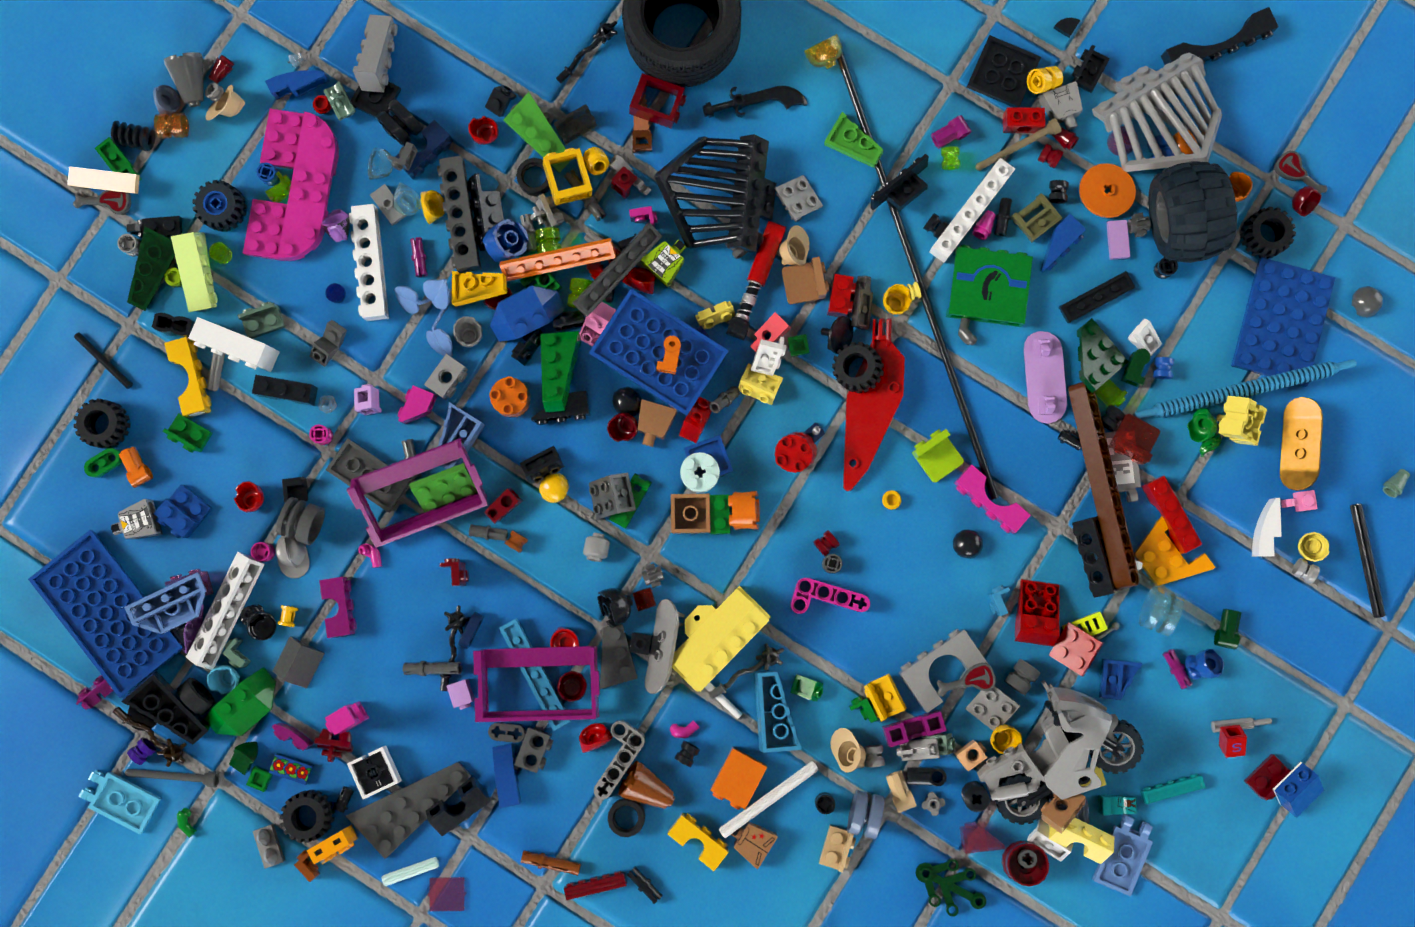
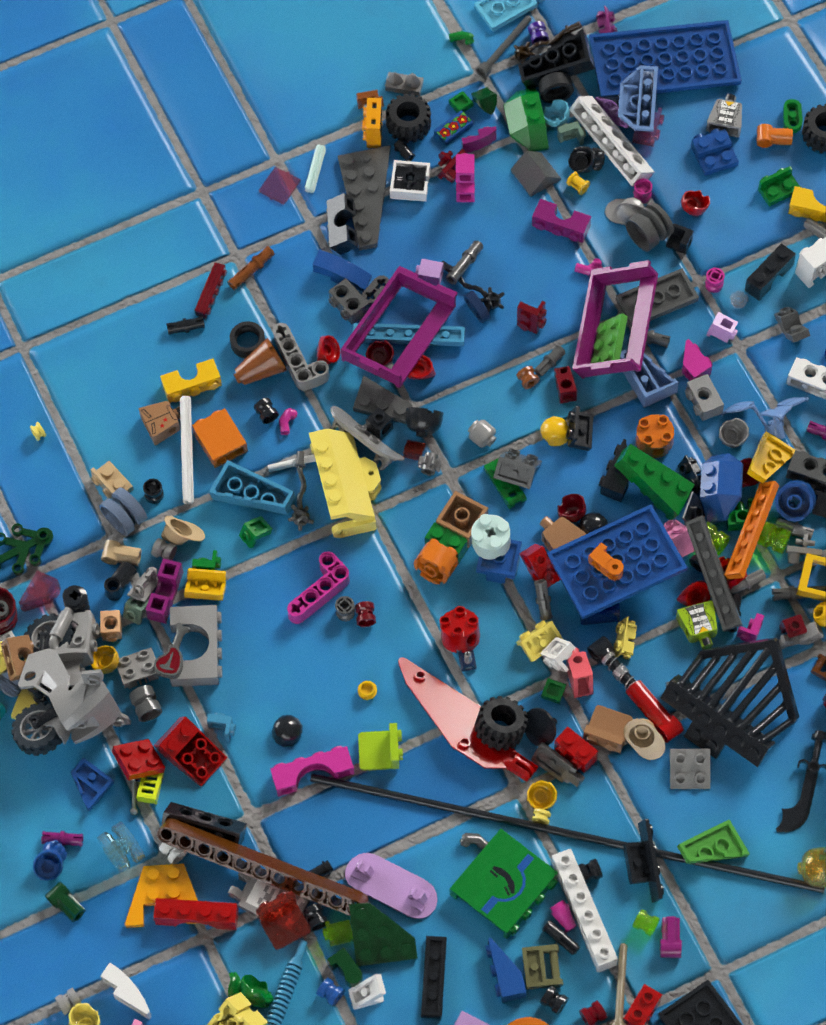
camera: 120 degrees right, 20 degrees down
(927, 804) = (93, 579): light grey plate -> none

